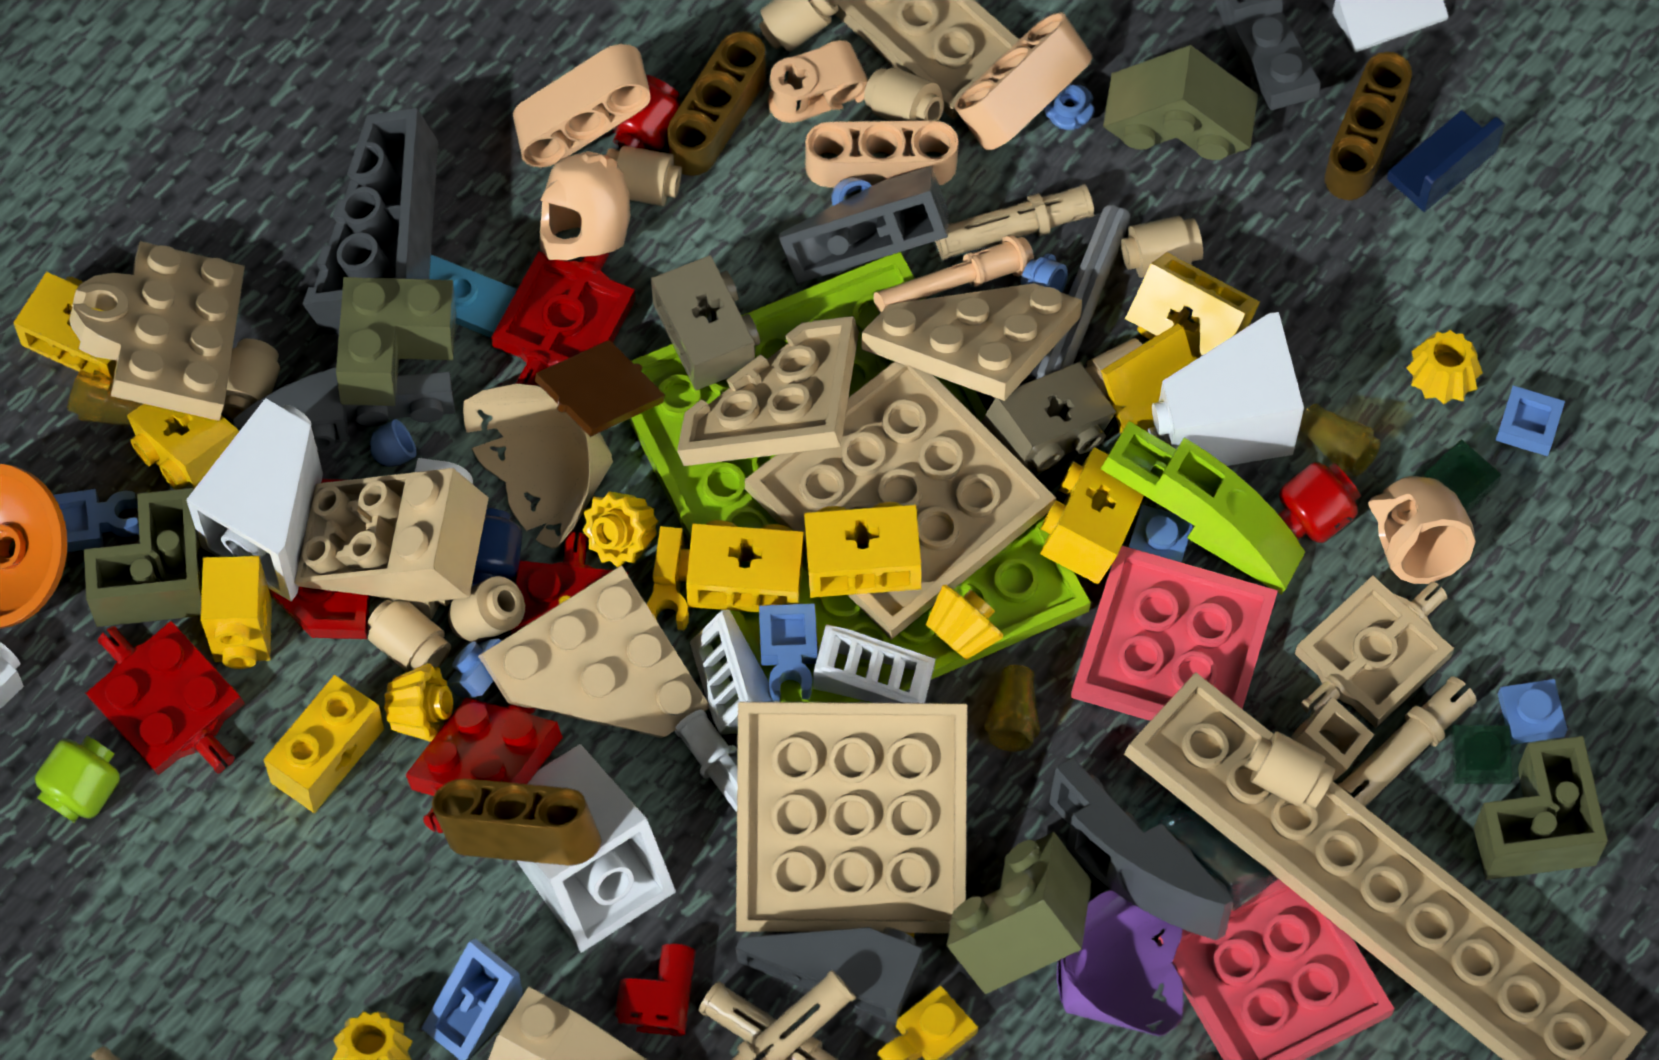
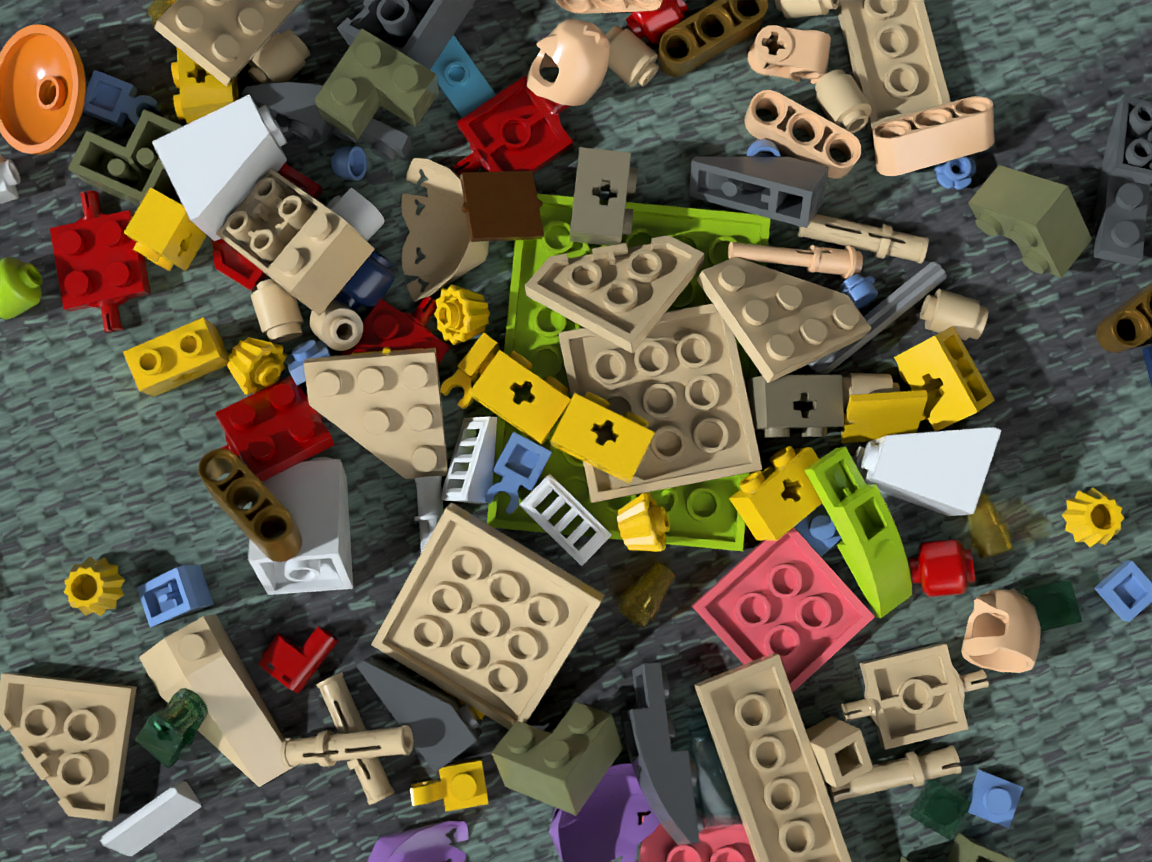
camera: 25 degrees right, 20 degrees up
(1290, 770) = (797, 771): tan brick -> none

